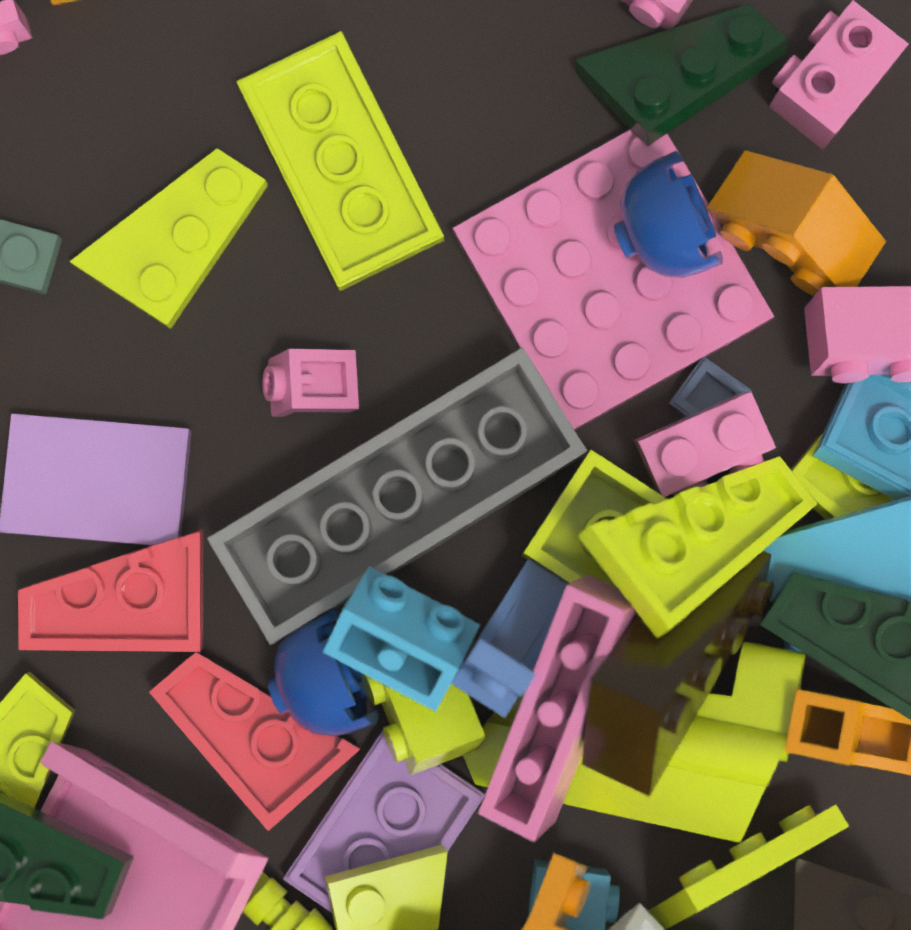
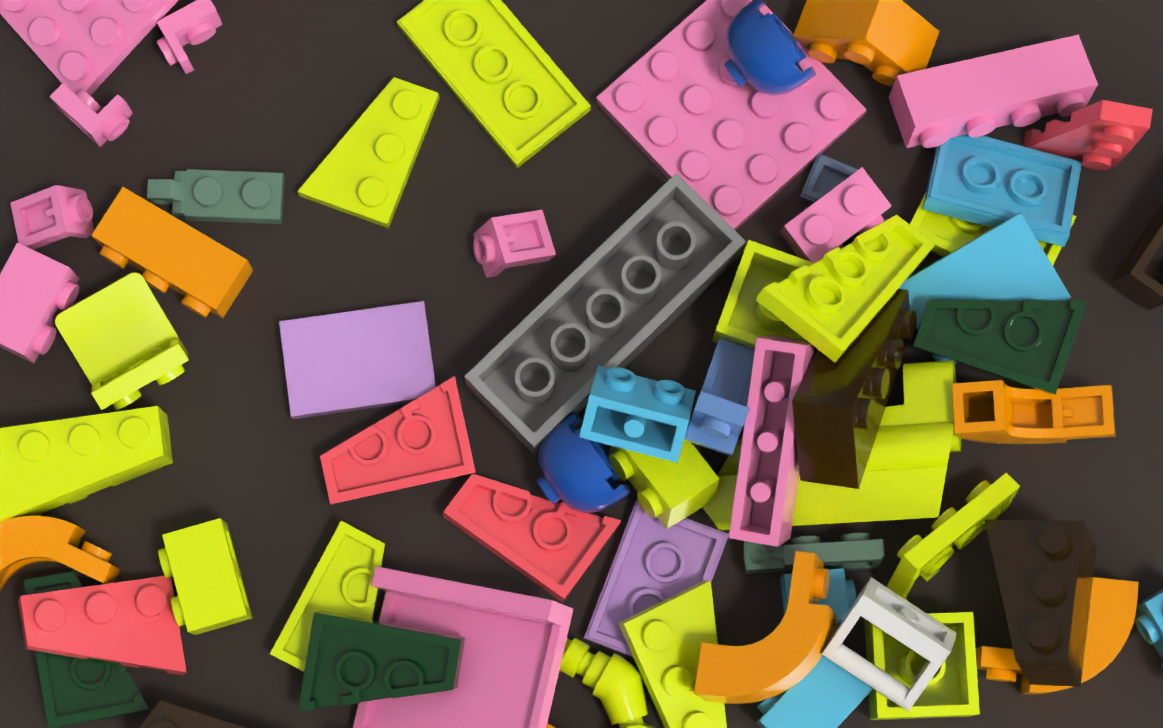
camera: 15 degrees left, 5 degrees down
(574, 842) = (852, 553): none -> sand green hinge

